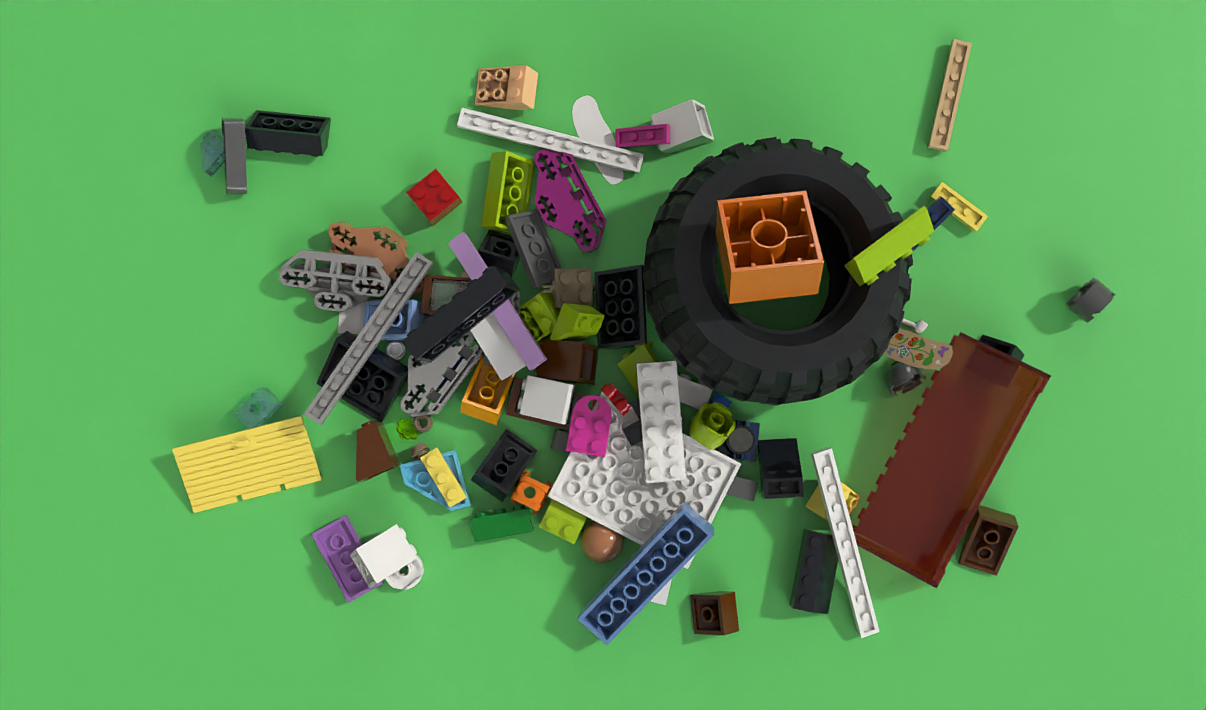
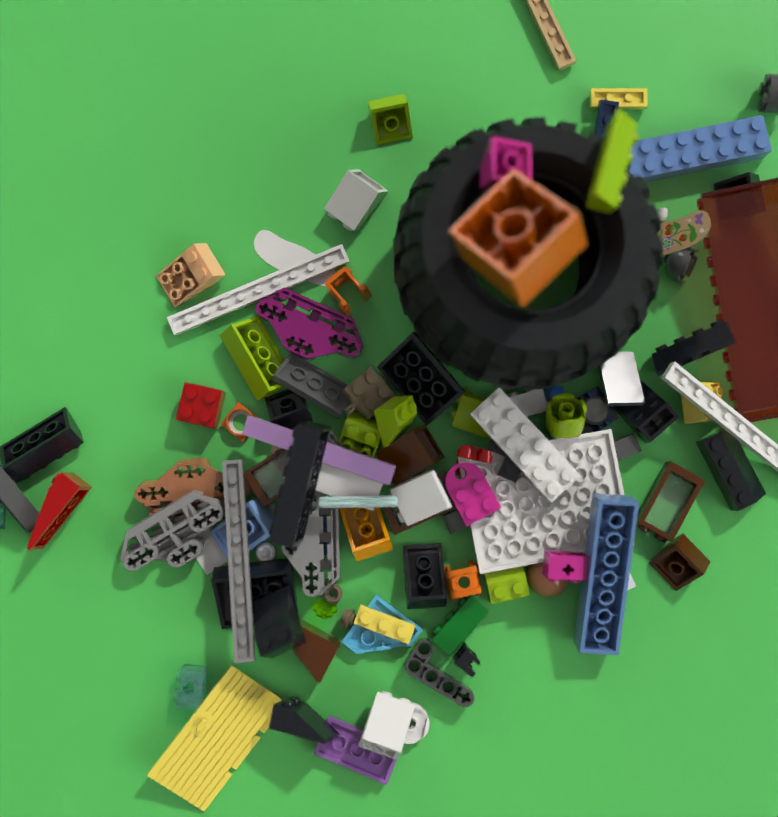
camera: 40 degrees left, 0 degrees up
(266, 189) = (58, 505): none -> red slope
(321, 500) = (301, 720): none -> black slope
(359, 410) = (277, 624): none -> black slope
(446, 226) = (228, 421): none -> orange piece
(456, 553) = (441, 676): none -> dark grey beam
(485, 553) = (464, 658): none -> black hinge
(495, 364) = (358, 501): none -> light aqua axle
(614, 531) = (556, 560): none -> dark pink brick
(618, 180) = (339, 279): none -> orange piece
(642, 136) = (330, 229): dark pink plate -> none
(743, 558) = (669, 502): none -> window
(760, 84) = (390, 119): none -> lime slope
(780, 431) = (621, 381): none -> tile
(810, 177) = (501, 158): none -> dark pink slope
(859, 451) = (694, 347): none -> black wedge
(985, 294) = (700, 149): none -> medium blue brick

